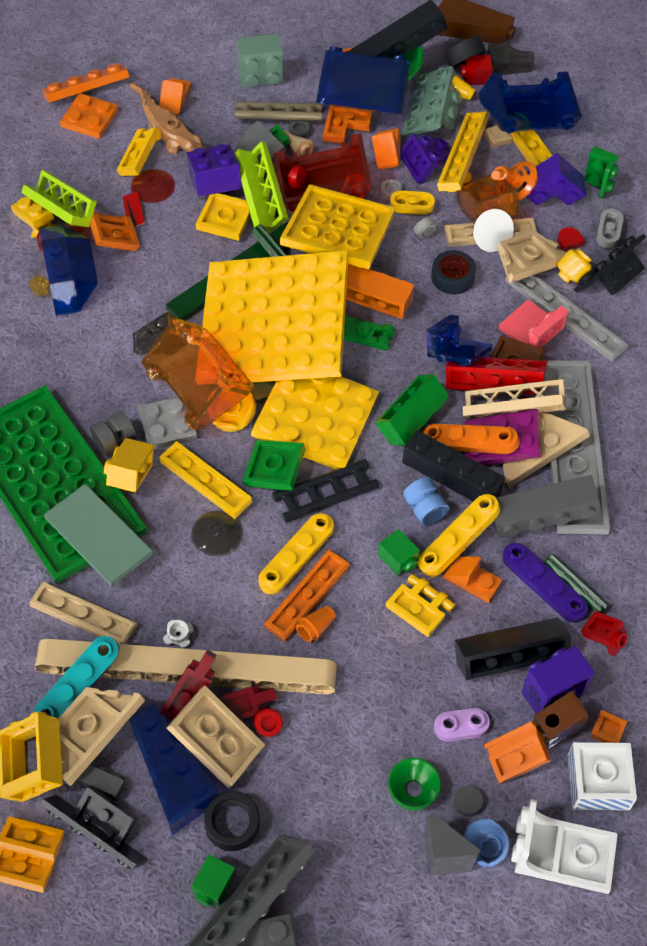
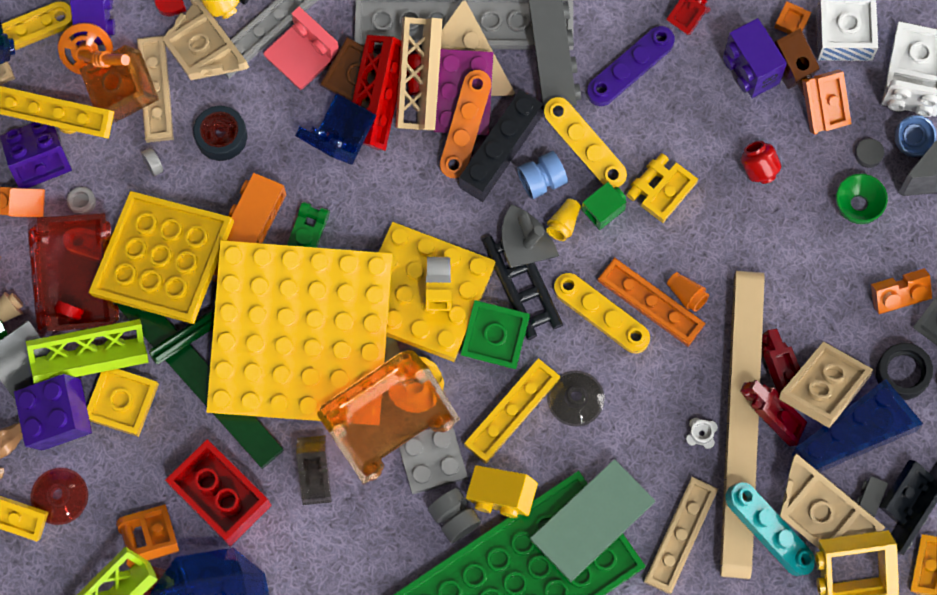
camera: 85 degrees left, 15 degrees up
(133, 208) = (99, 517): red sticker -> none
(143, 272) = (218, 493): none -> red brick
(267, 722) = (800, 338): red tile -> none
(316, 413) = (438, 284): none -> leg
(317, 829) = (893, 294): none -> orange piece
(365, 490) = (525, 239): none -> dark grey shield
(383, 520) = (564, 220): none -> yellow cone
(412, 202) = (108, 177): yellow plate -> none
(412, 409) = (424, 184): green brick -> none
(448, 689) = (760, 162): none -> red head
(462, 724) = (791, 154): lavender plate -> none
(468, 575) = (629, 134): orange slope -> none
(492, 228) = (163, 82): white sticker -> none
(510, 648) = (714, 99): black brick -> none
(593, 600) = (633, 35): dark green axle -> none

